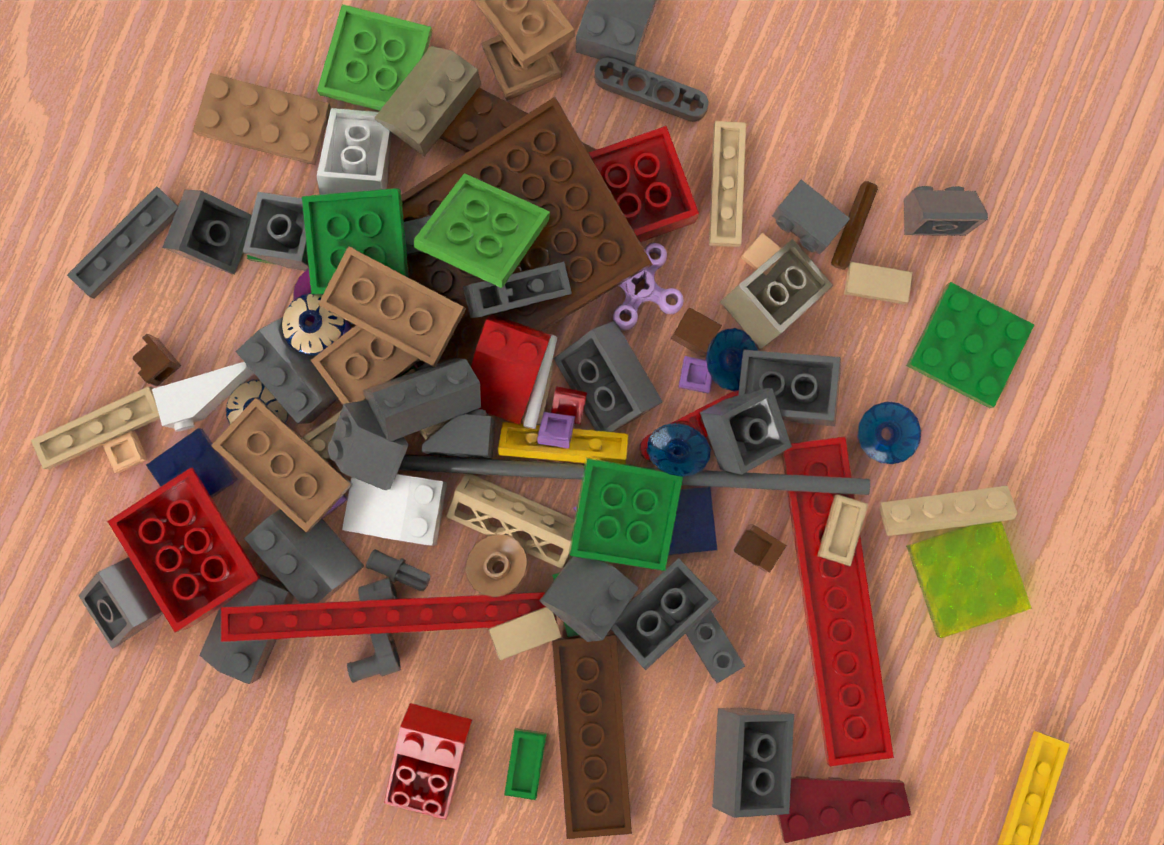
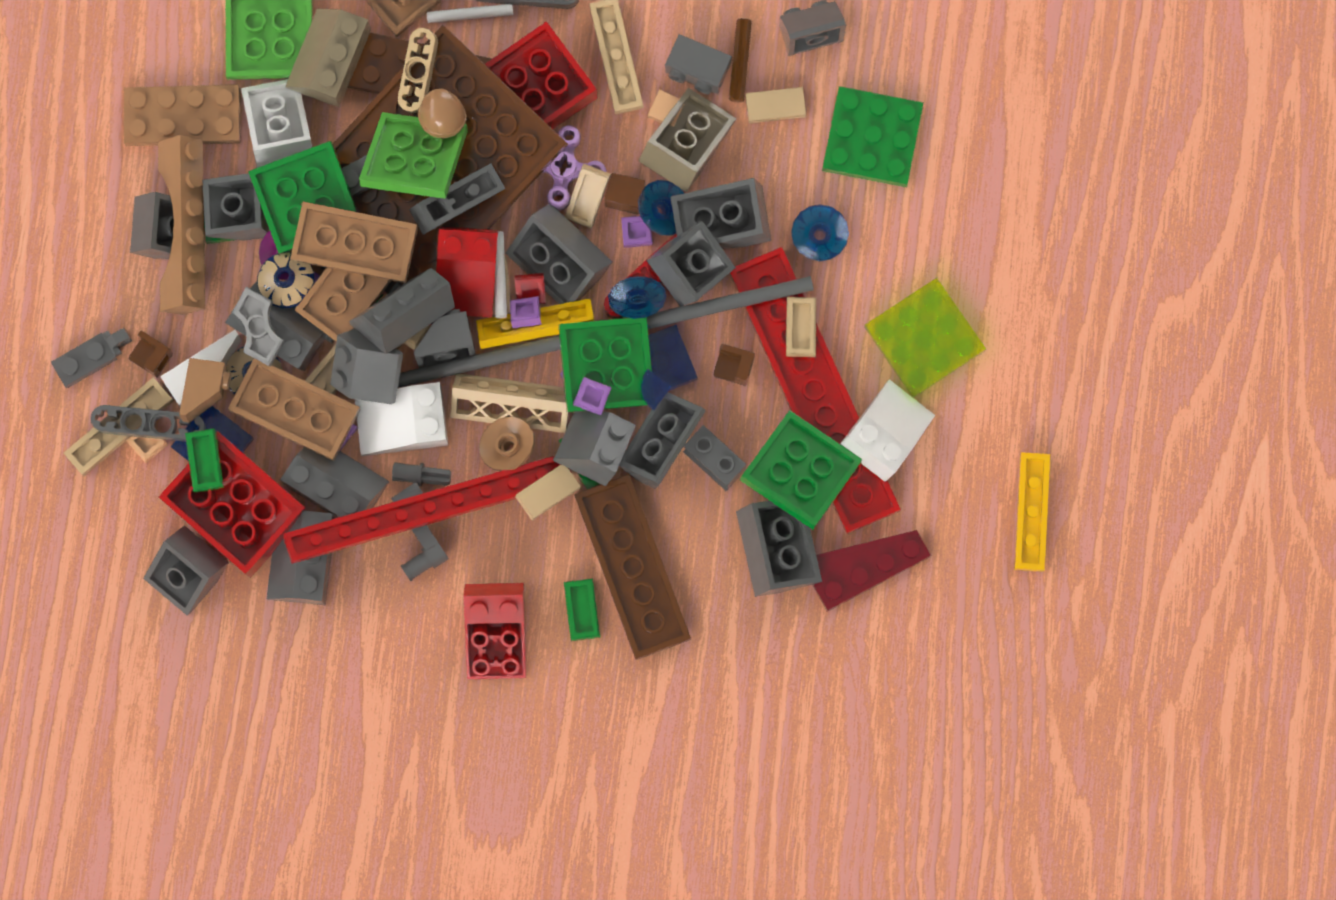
camera: 10 degrees left, 5 degrees down
(92, 345) = (90, 356): none -> dark grey hinge
(124, 243) = (92, 258): dark grey plate -> none
(125, 436) = (147, 427): none -> dark grey beam
(165, 497) = (204, 460): none -> green tile
(187, 416) = (203, 387): none -> medium nougat slope
(211, 286) = (184, 278): none -> medium nougat arch
(265, 381) = (261, 339): none -> light grey tile
(526, 193) = (441, 114): none -> medium nougat hat
(532, 120) = (428, 50): none -> tan beam
(588, 97) = (469, 13): none -> white bar
(600, 546) = (592, 396): none -> medium lavender tile
(656, 323) = (587, 195): none -> tan tile
(668, 556) = (653, 389): none -> clear blue tile
(802, 691) = (801, 469): none -> green plate
(904, 671) = (888, 430): none -> white slope
(947, 510) = (889, 285): tan plate -> none

